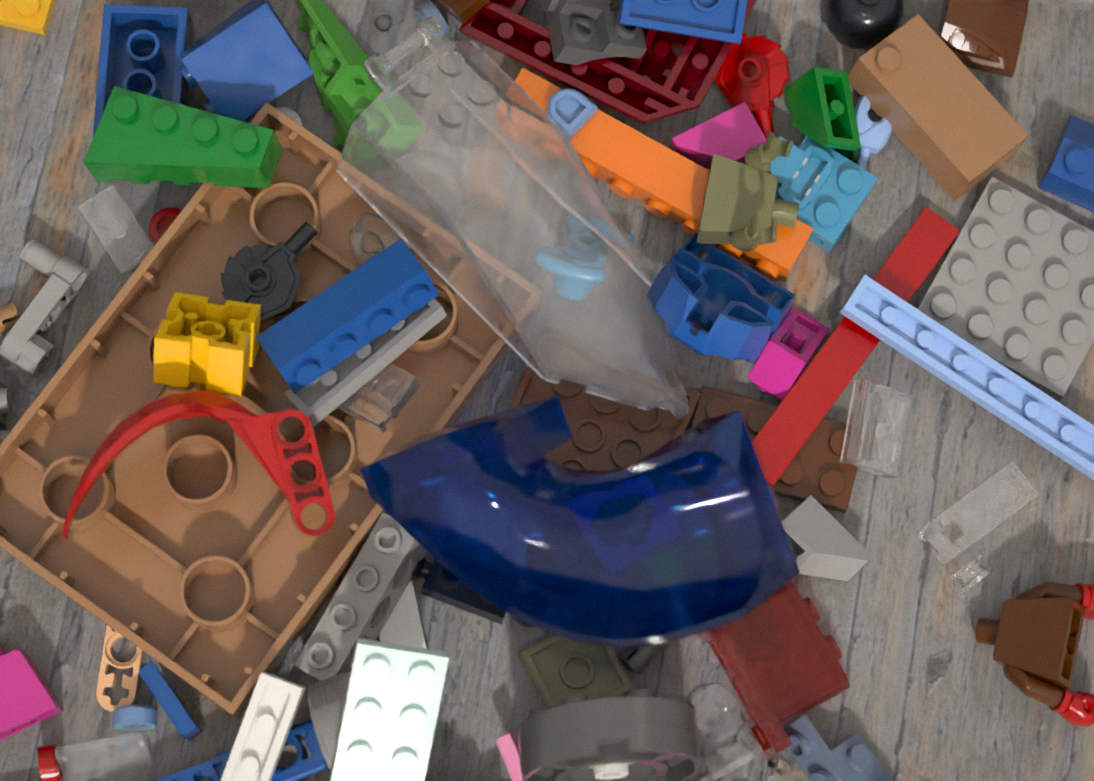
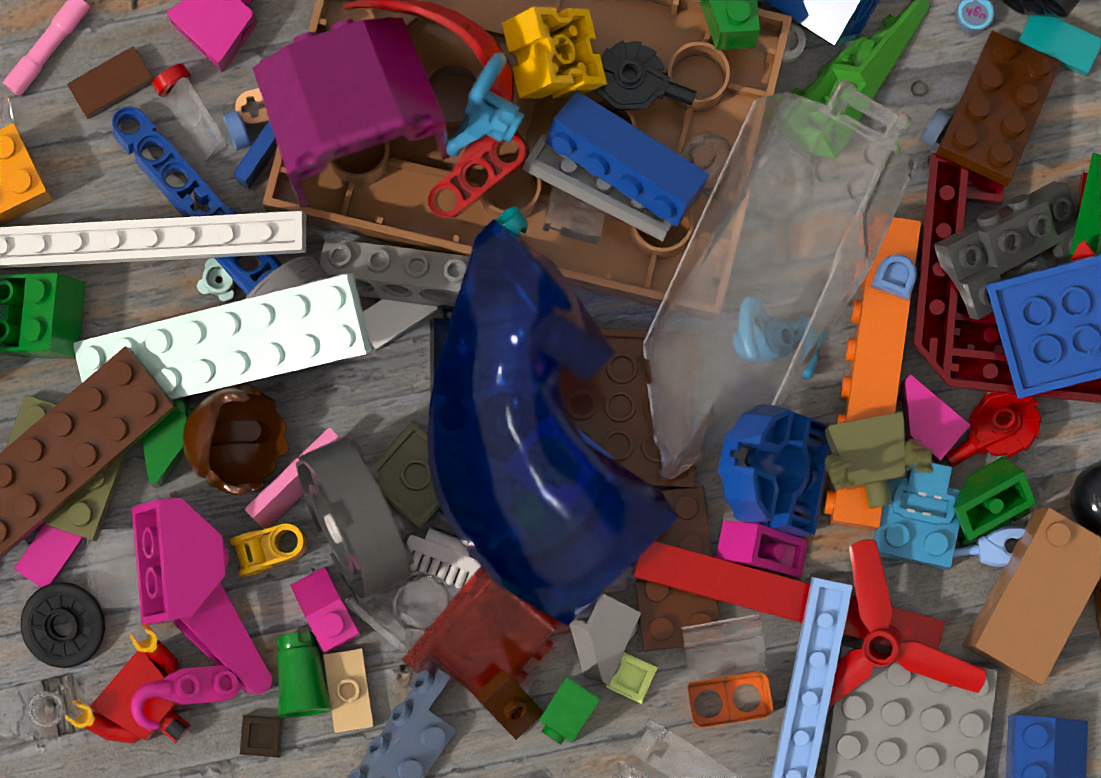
camera: 70 degrees right, 5 degrees up
(166, 573) = (346, 94): none -> magenta windscreen
(246, 432) = (486, 112): none -> dark azure piece
(359, 457) = (513, 220): none -> teal hinge
(672, 664) = (445, 549): none -> white piece
(855, 664) = (509, 704): none -> reddish brown plate
(871, 531) = (632, 678): none -> yellowish green tile
(886, 605) = (567, 711): none -> green slope
(901, 263) = (876, 614): none -> red piece
(951, 415) = (726, 693): none -> orange piece

